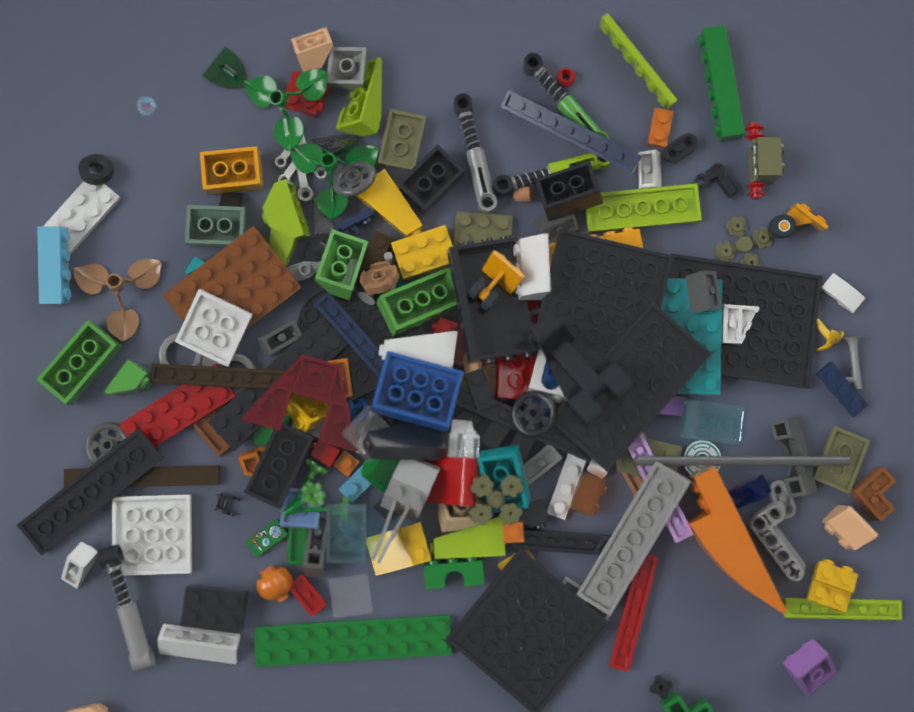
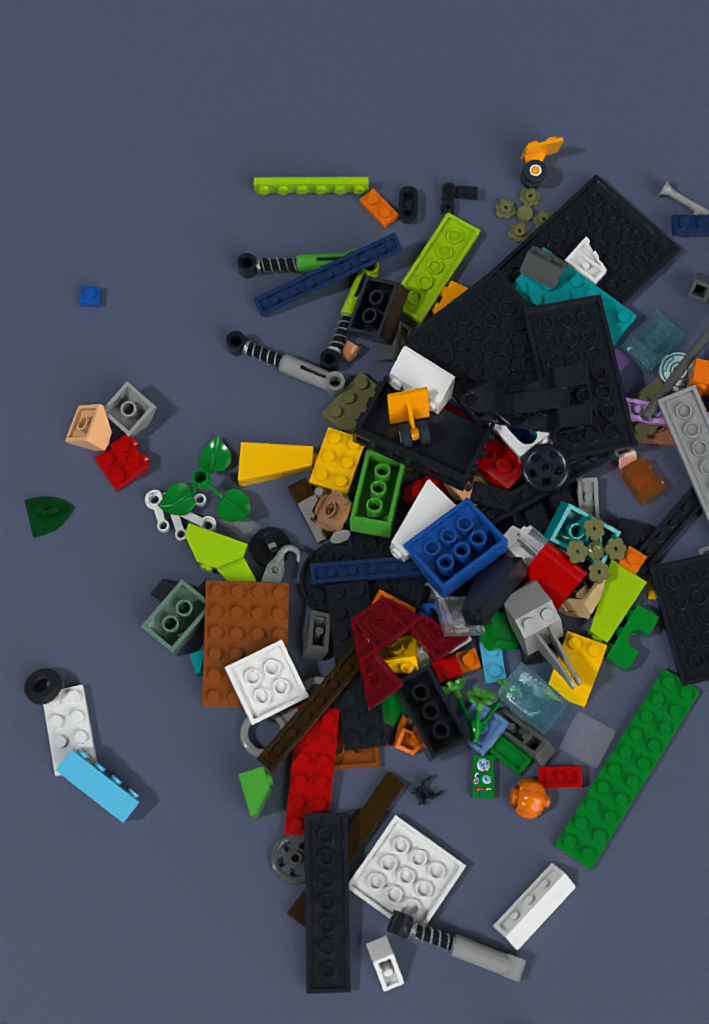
camera: 50 degrees left, 10 degrees down
(79, 363) = (204, 826): bright green brick -> none
(94, 276) = (166, 713): medium nougat plant -> none
(146, 106) = (21, 603): clear tile -> none
(214, 608) = (513, 867): black brick -> none
(231, 170) = (139, 569): light orange brick -> none
(264, 92) = (145, 496): green plant -> none
(335, 144) = (185, 468): shield -> none
(340, 263) = (296, 533): bright green slope -> none
(354, 178) = (230, 472): dark grey plate -> none
(363, 218) = (268, 491): dark blue plate -> none
(364, 109) = (172, 422): lime wedge -> none
(402, 140) = (226, 413): olive plate -> none
(431, 179) = (280, 412): black brick -> none
(566, 486) = (621, 493): white plate -> none
(569, 72) = (278, 243): red plate -> none
(649, 169) = (410, 242): white slope -> none
(721, 83) = (380, 136): green brick -> none
(764, 160) = (469, 149): olive brick -> none
(832, 337) = (653, 203): yellow plant -> none
(843, 292) = (622, 168): white slope -> none

